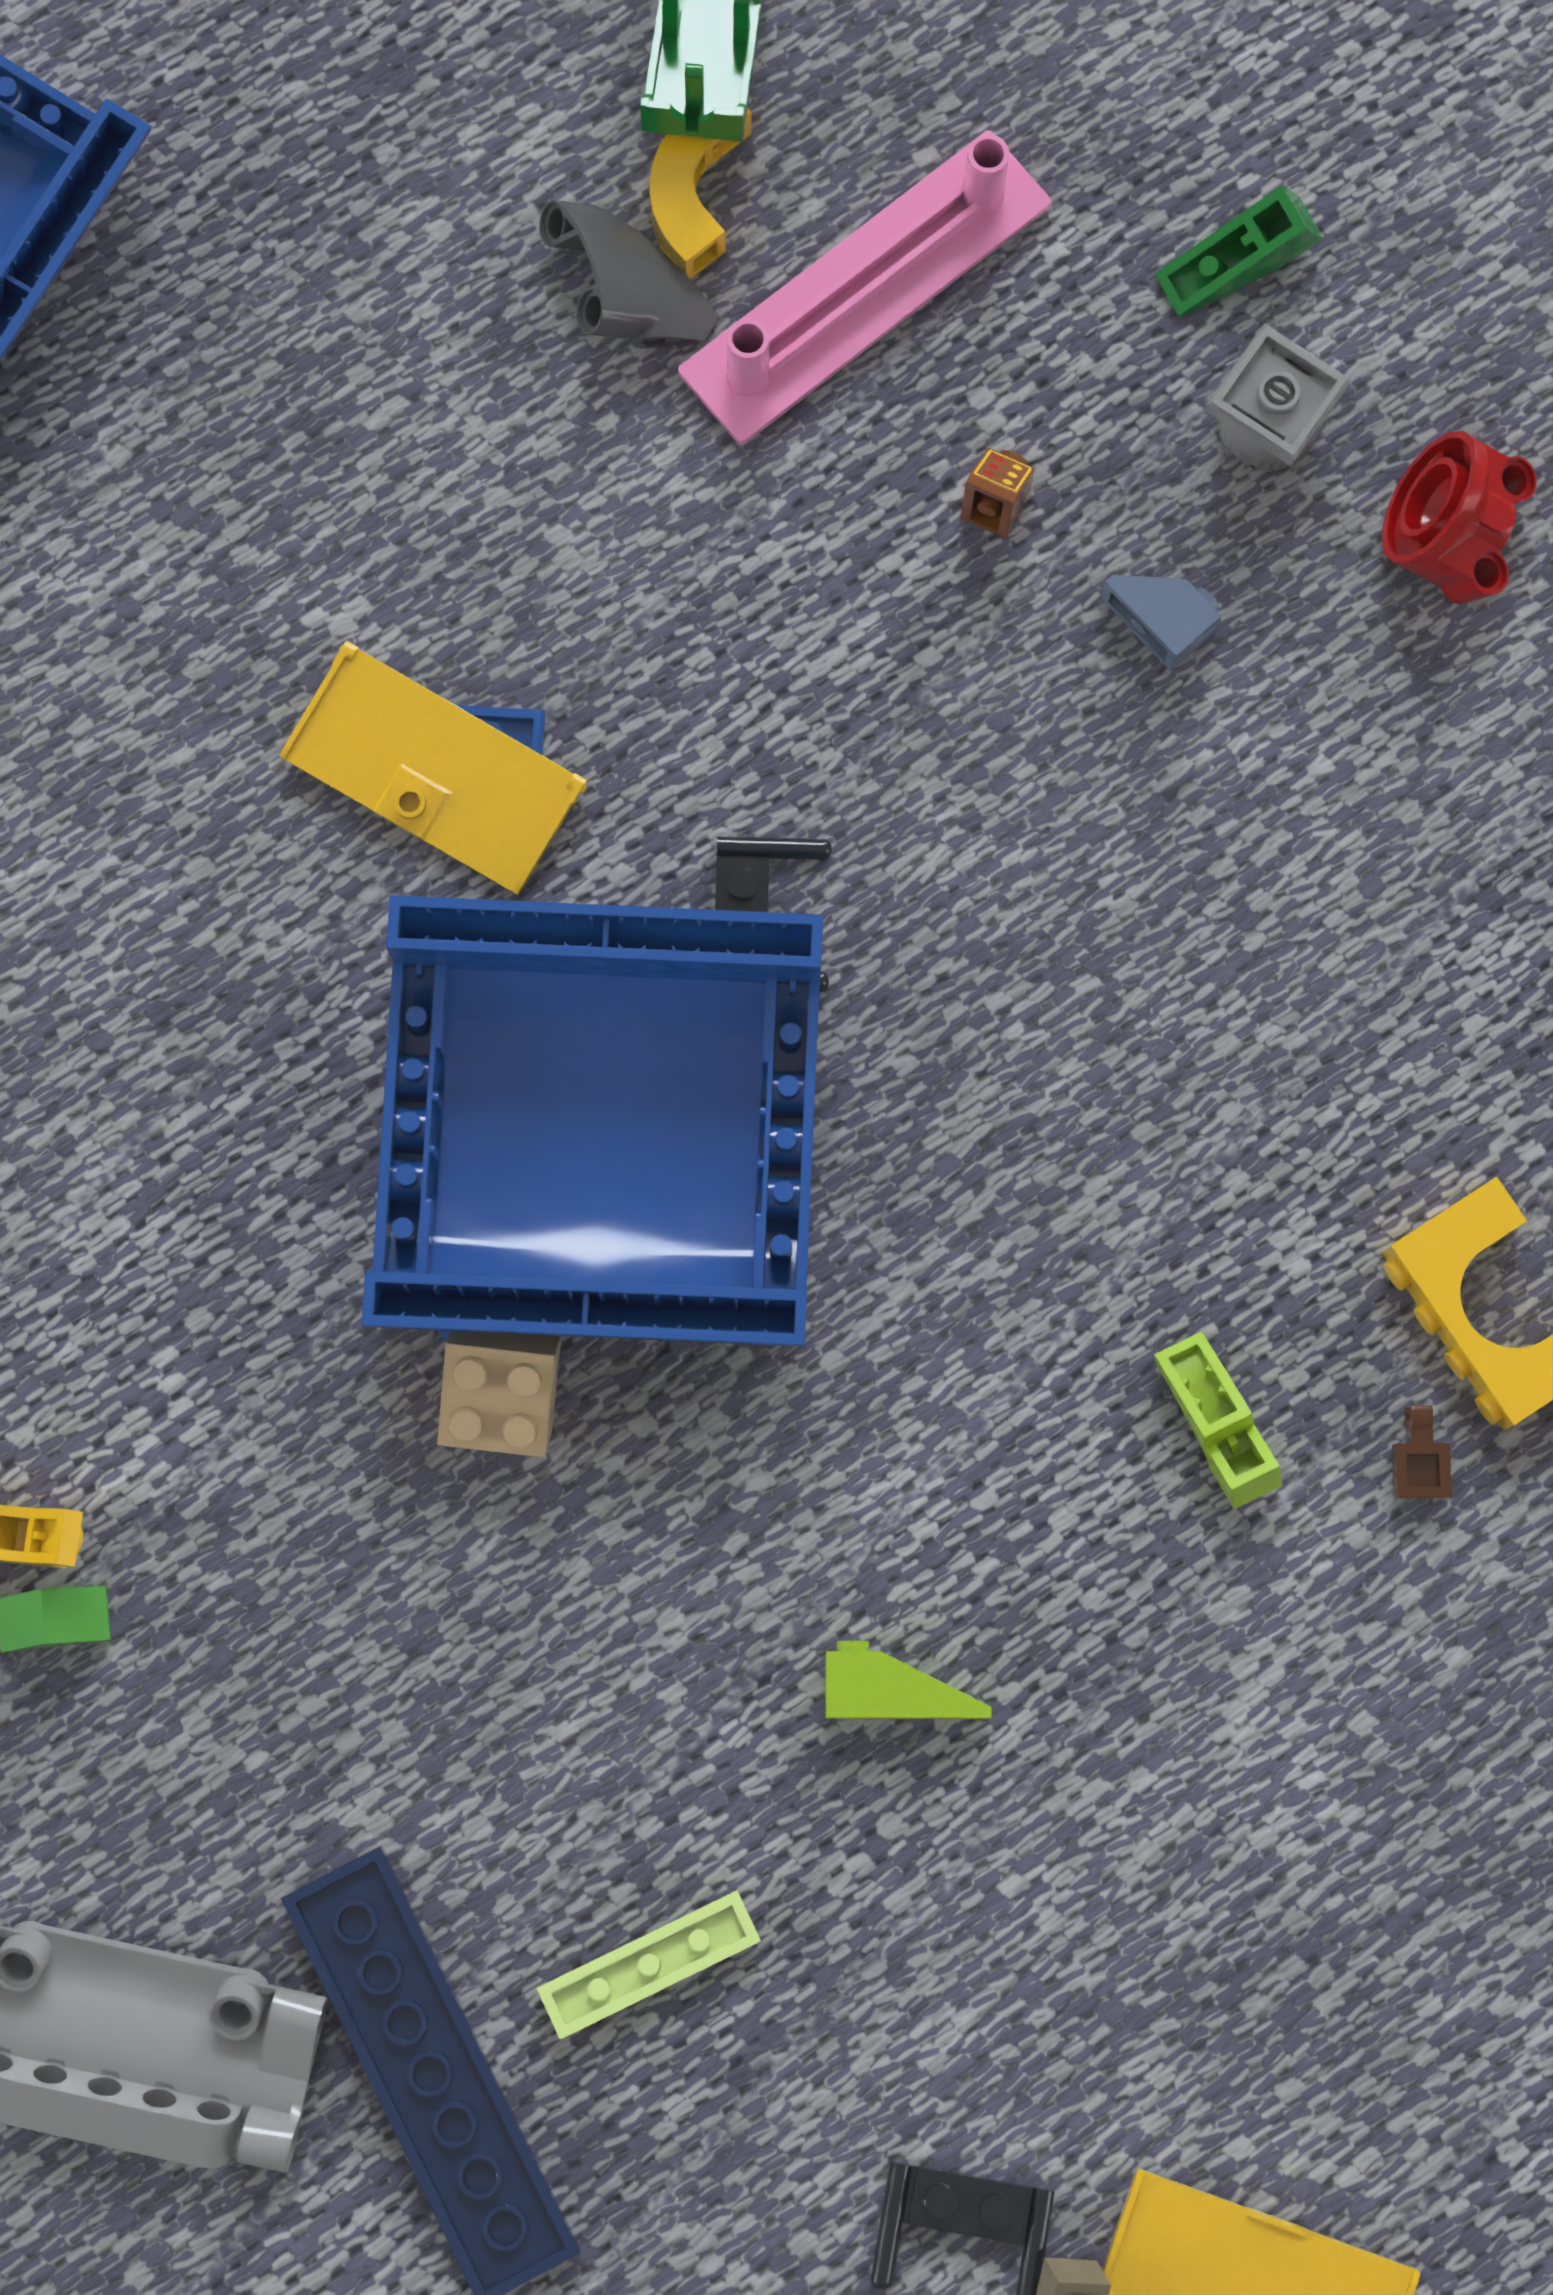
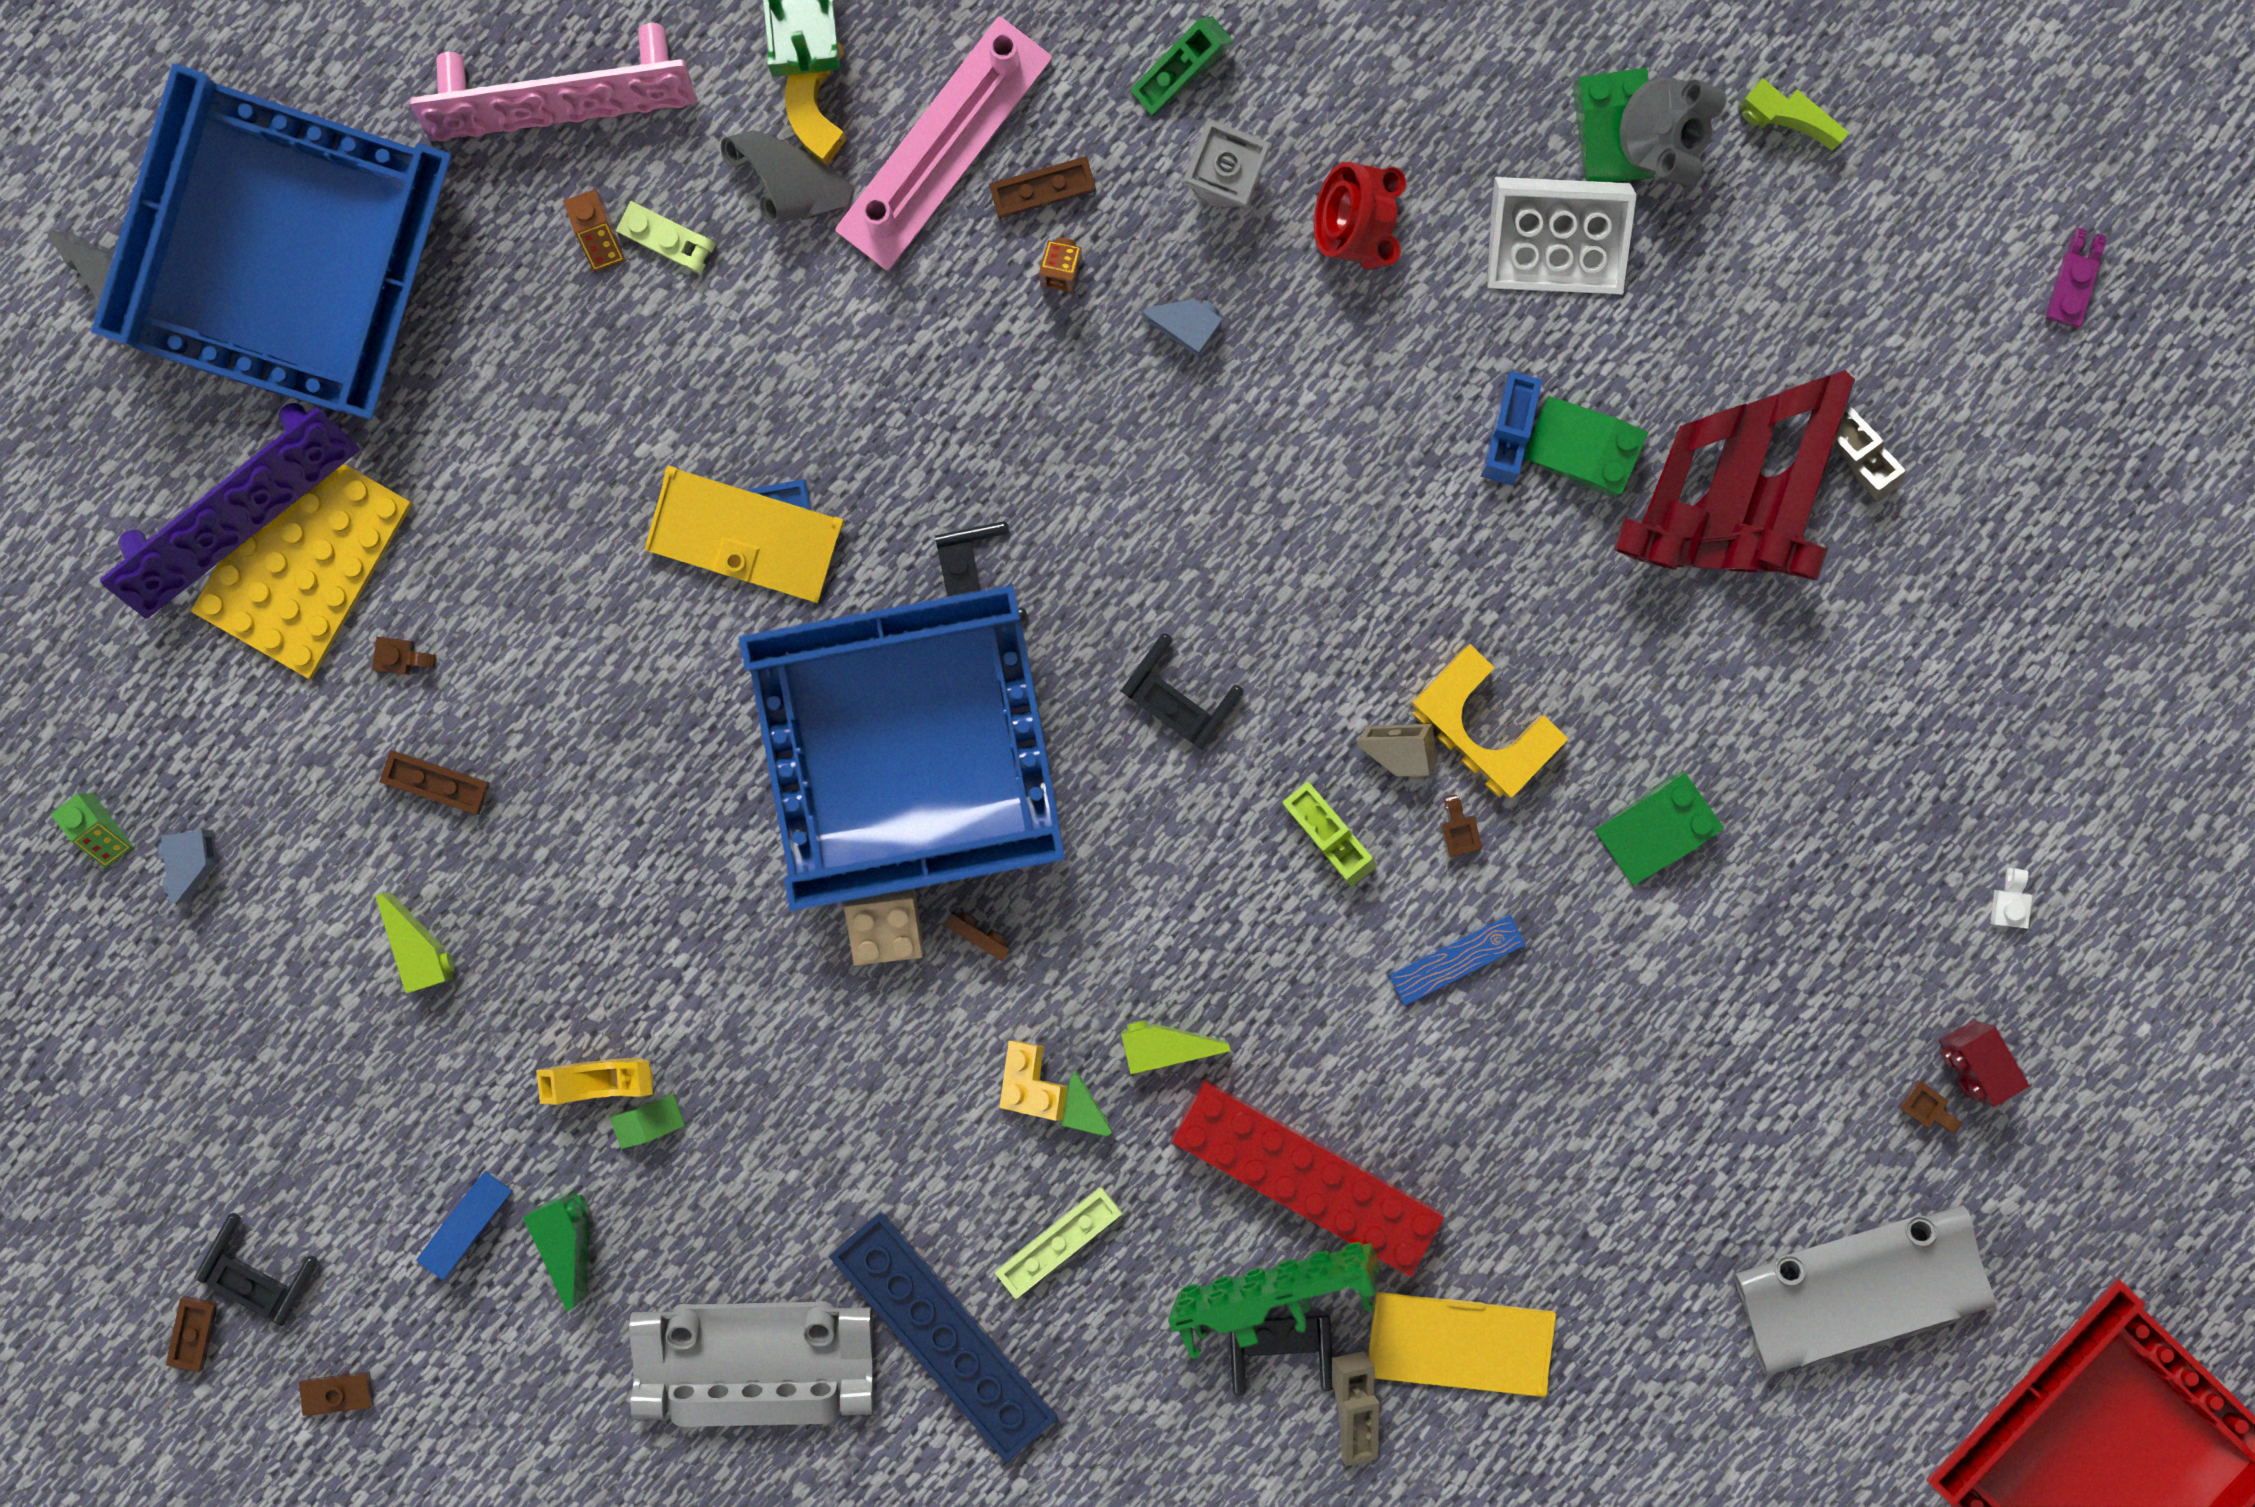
camera: 10 degrees left, 10 degrees up
(321, 95) = (554, 100): none -> bright pink piece
(327, 289) = (594, 230): none -> dark orange slope
(426, 325) = (664, 237): none -> yellowish green plate
(652, 1701) = (1022, 1084): none -> yellow plate
(657, 1463) = (966, 926): none -> reddish brown plate
(735, 1757) = (1082, 1110): none -> bright green slope
(929, 2124) = (1245, 1300): none -> green piece
(996, 378) = (1042, 187): none -> reddish brown plate
(1018, 1169) = (1171, 705): none -> black plate
(1070, 1953) = (1307, 1177): none -> red brick
(1359, 1313) = (1401, 748): none -> dark tan slope
(1375, 1663) = (1457, 959): none -> blue tile

